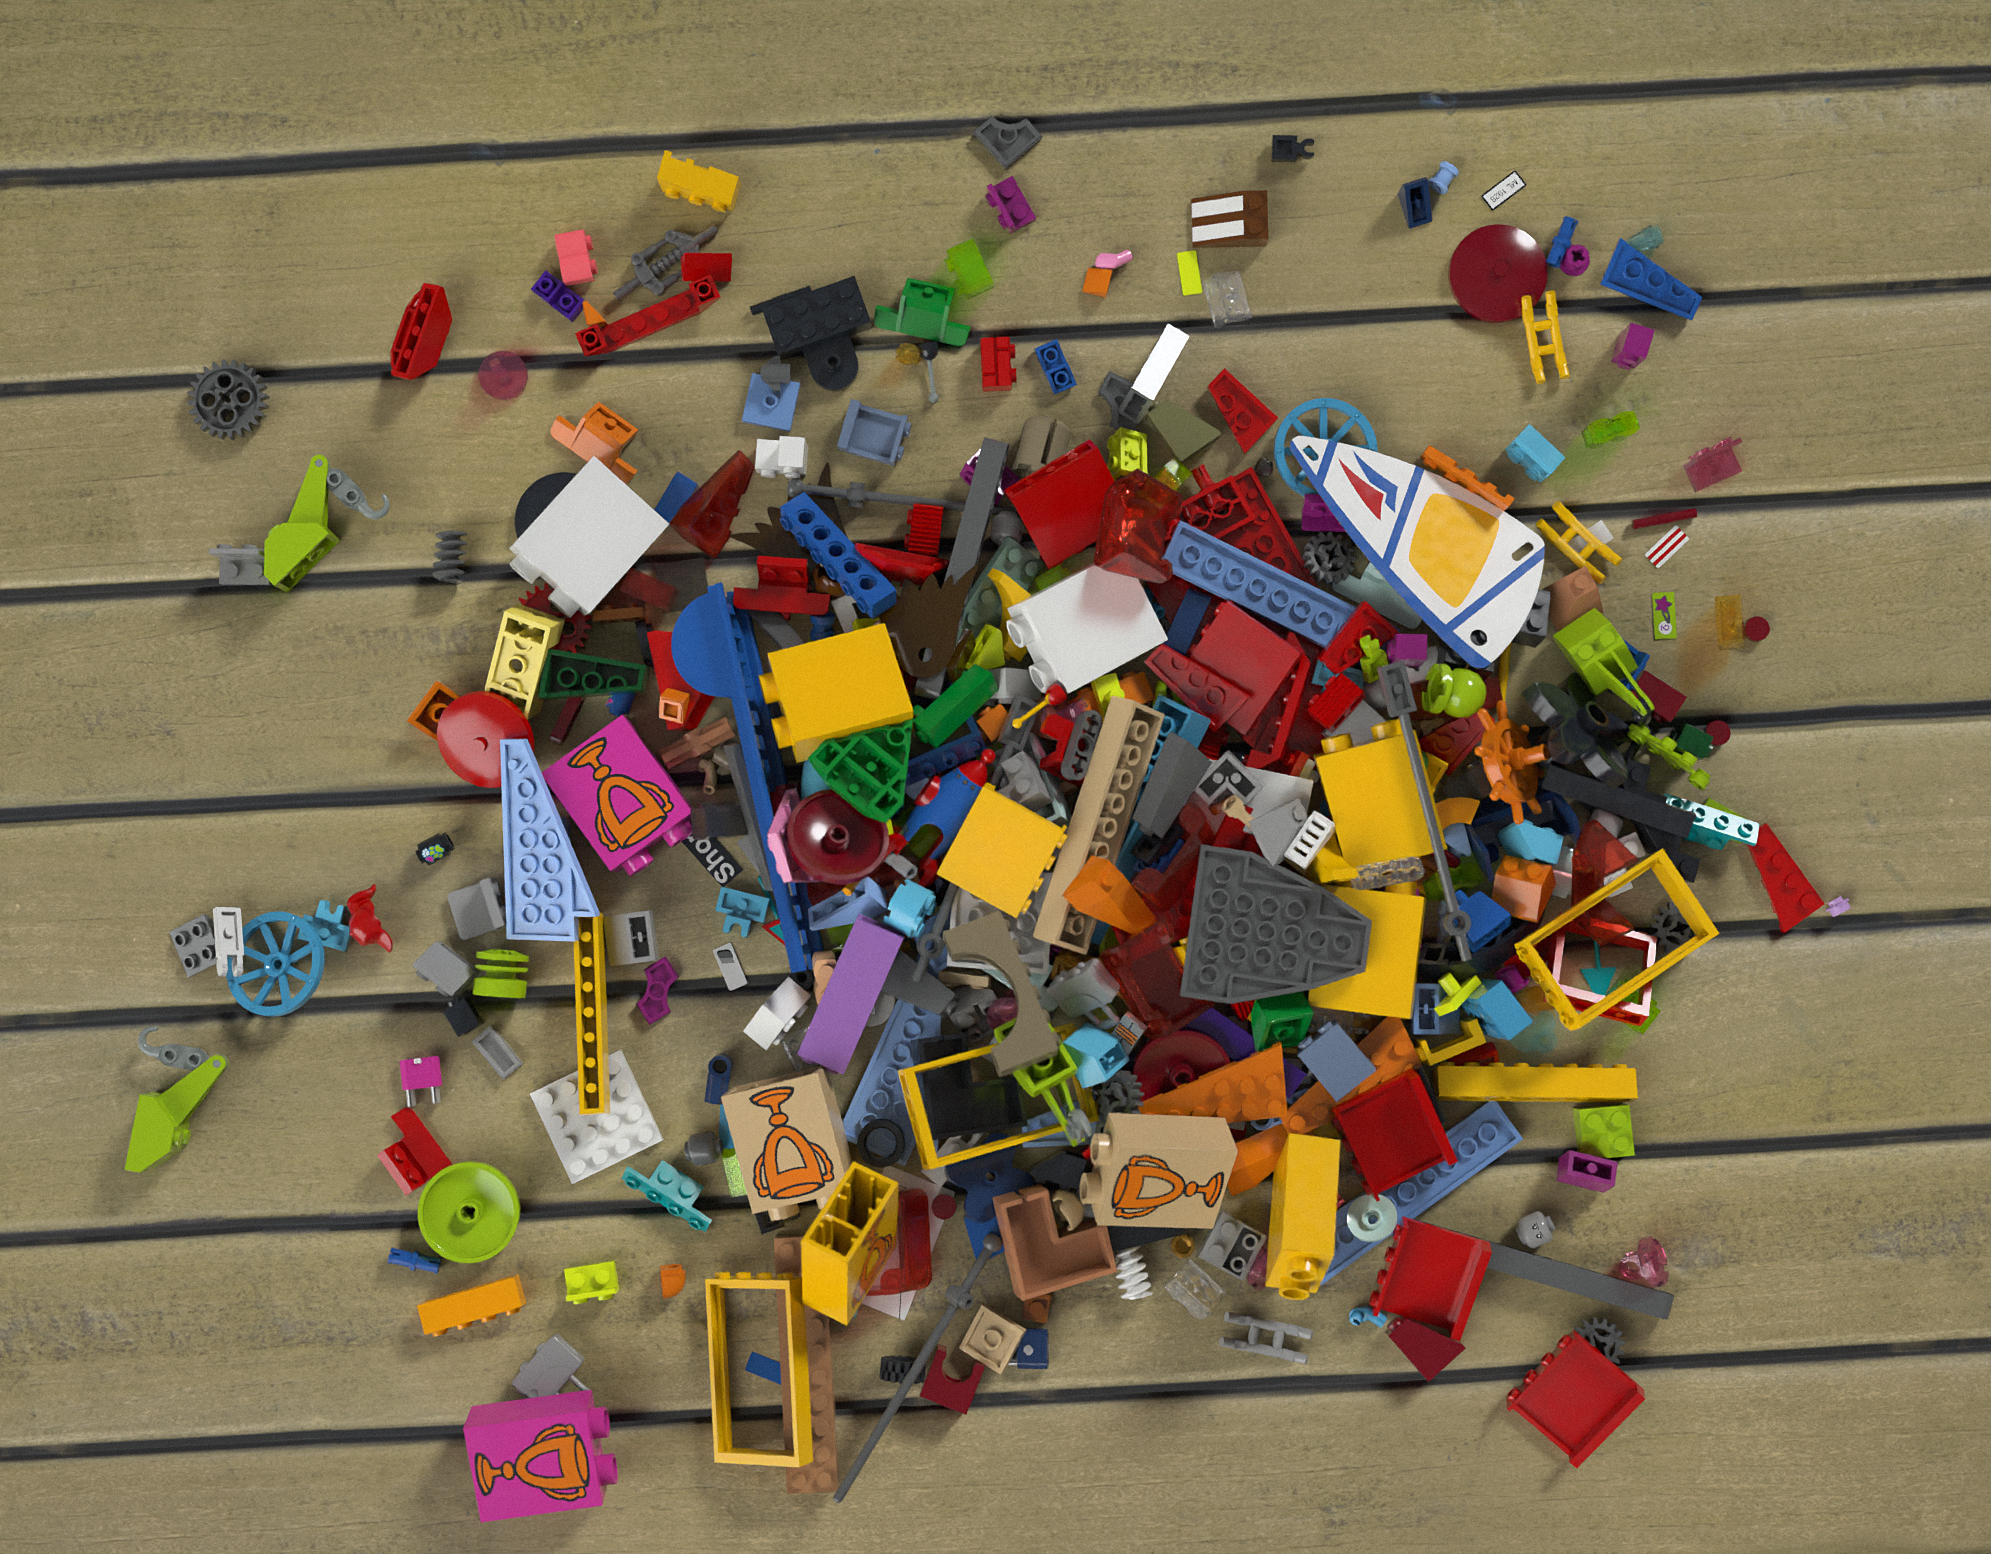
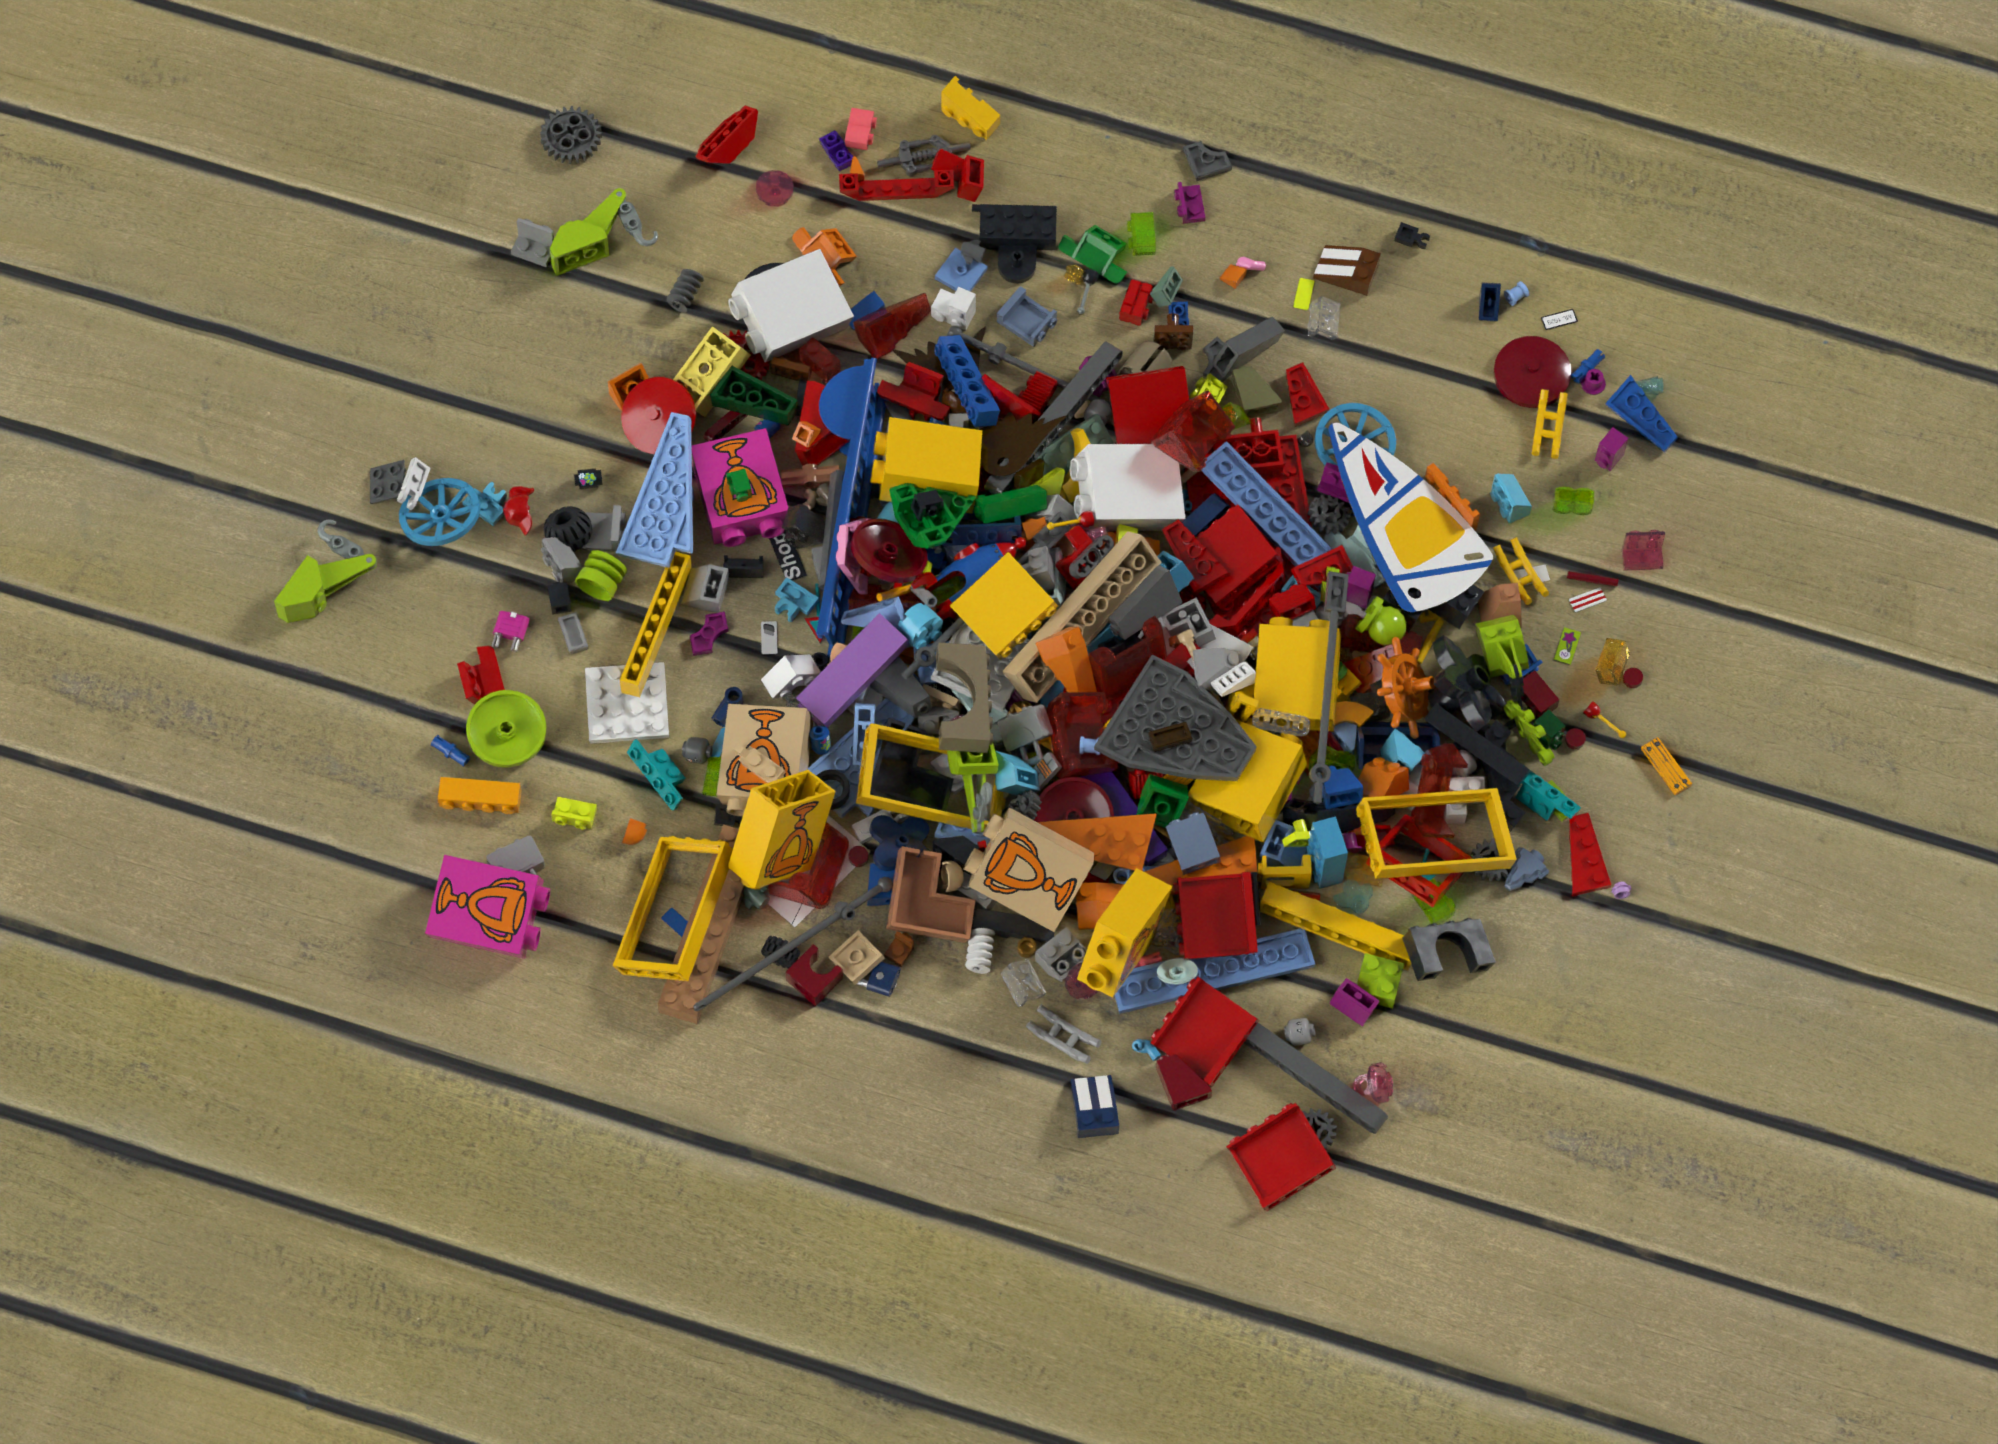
camera: 20 degrees right, 20 degrees down
(437, 924) = (570, 525): none -> black wheel
(621, 807) = (739, 485): none -> green brick
(664, 890) = (744, 567): none -> black hinge
(736, 275) = (971, 179): none -> red slope
(789, 1163) = (759, 763): none -> tan hinge
(844, 1086) = (820, 740): none -> blue brick
(861, 761) = (926, 504): none -> black brick
(889, 1052) = (863, 718): none -> light blue slope
(1026, 331) = (1166, 289): none -> sand green slope
(1058, 393) = (1173, 335): none -> reddish brown plate
(1169, 987) = (1087, 745): none -> light blue bush
(1266, 949) = (1170, 736): none -> dark brown tile
(1335, 1411) = (1095, 1106): none -> dark blue slope
(1643, 1073) = (1467, 935): none -> arch
(1725, 919) = (1526, 868): none -> sand blue rock
(1726, 690) = (1593, 711): none -> hinge
(1834, 727) = (1666, 766): none -> light orange tile

